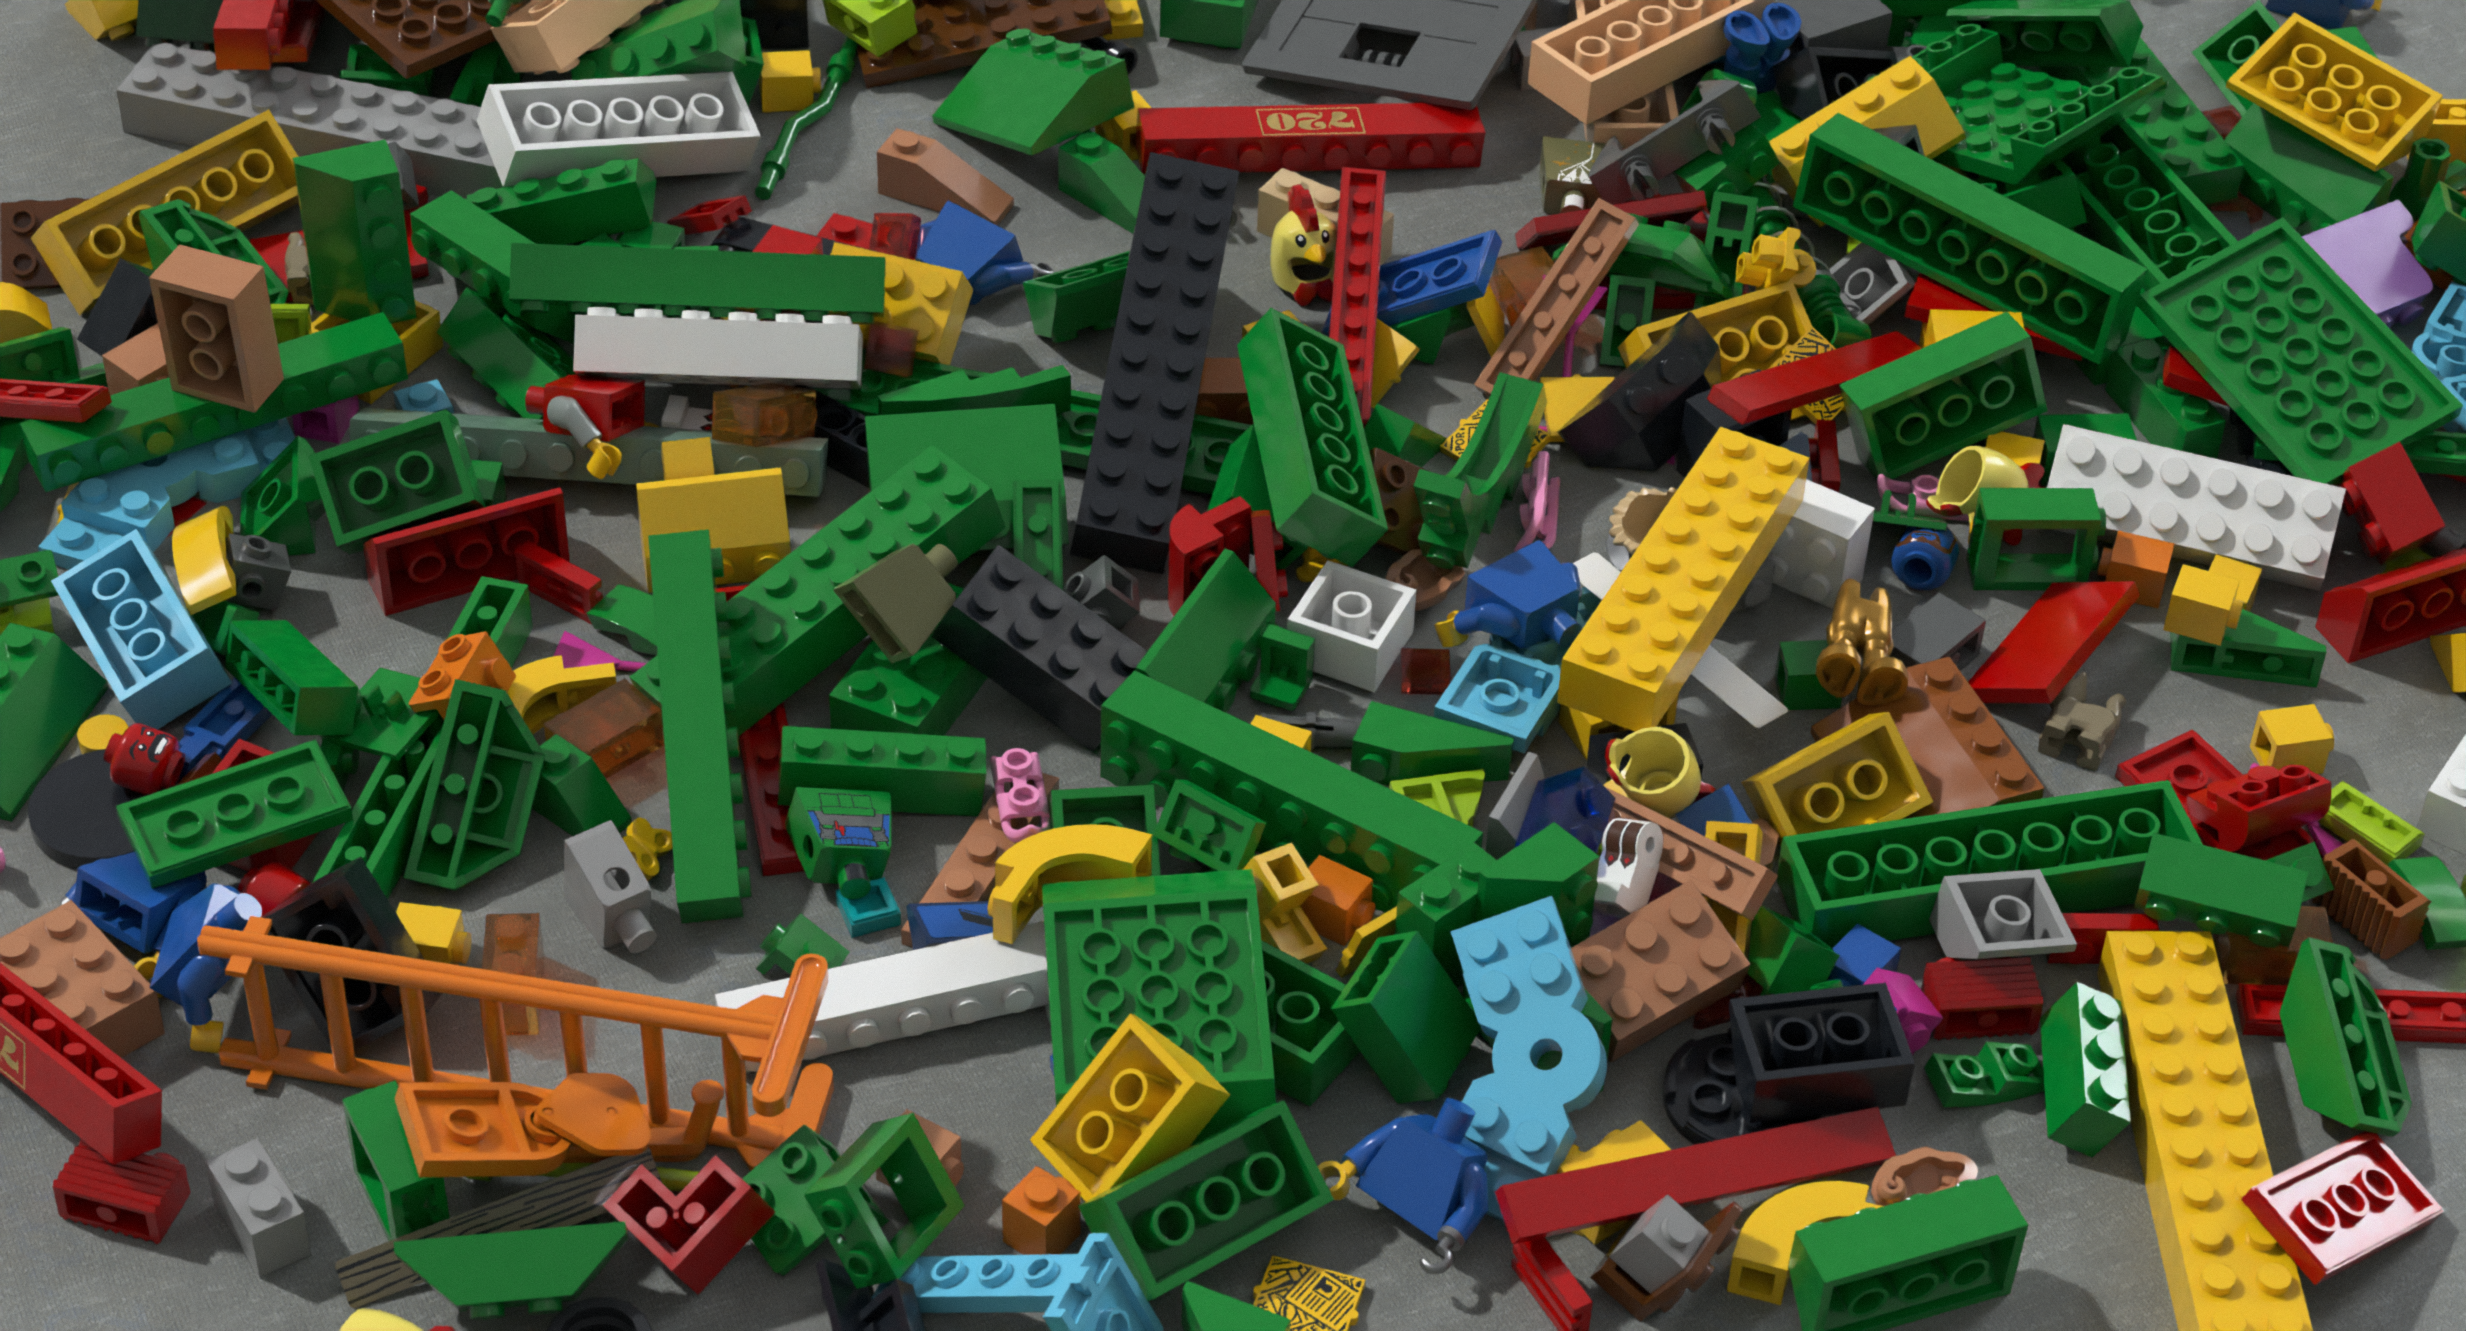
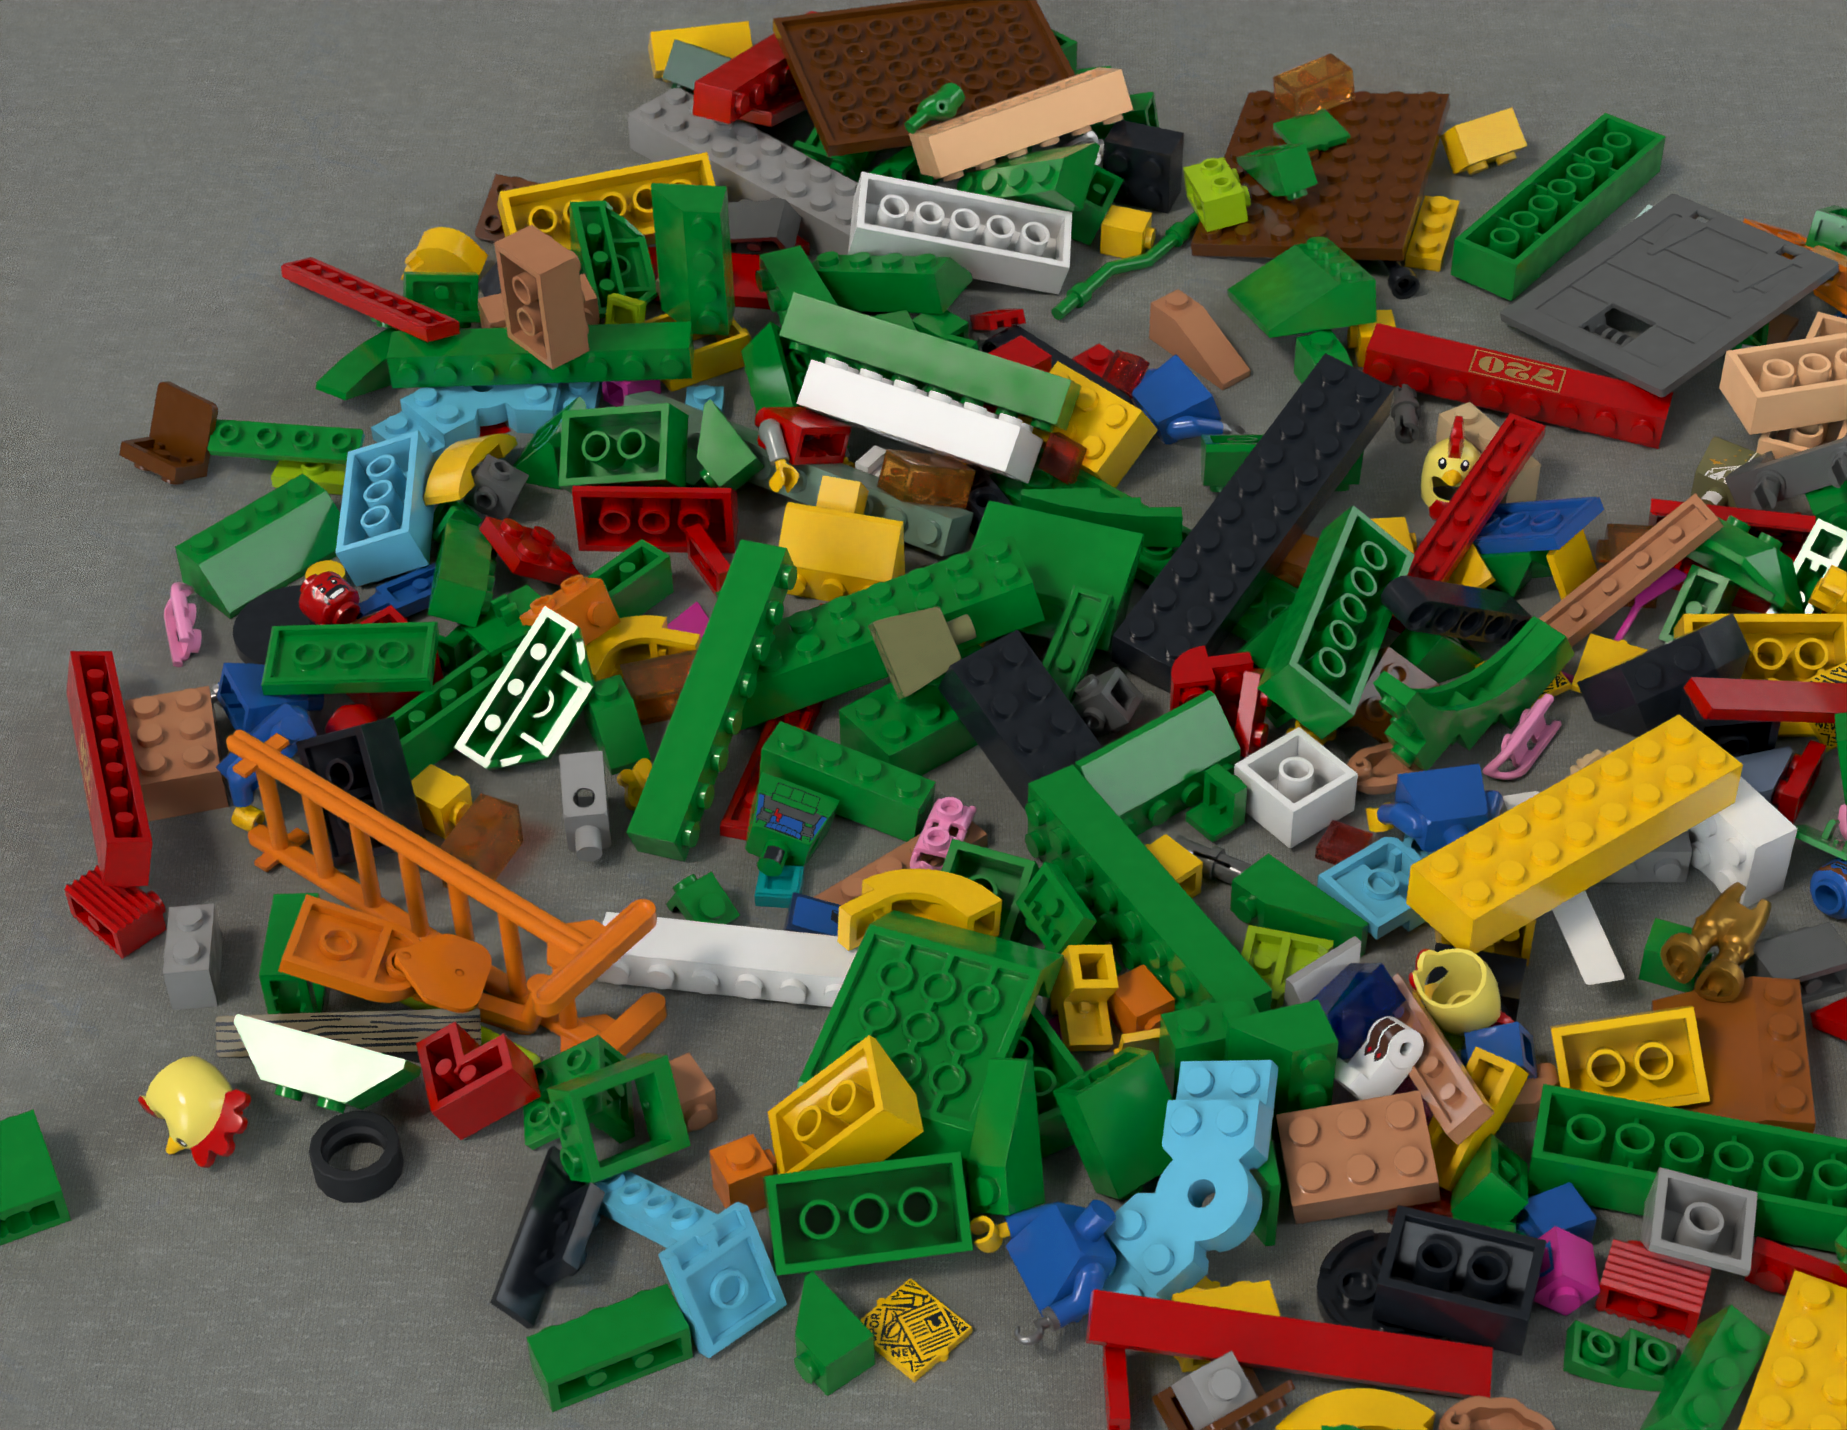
camera: 30 degrees right, 0 degrees up
(346, 631) = (528, 550): none -> red plate
(518, 449) = (723, 452): none -> green slope
(1310, 1070) = (1005, 1144): none -> green slope
(1413, 391) = (1454, 610): none -> black beam

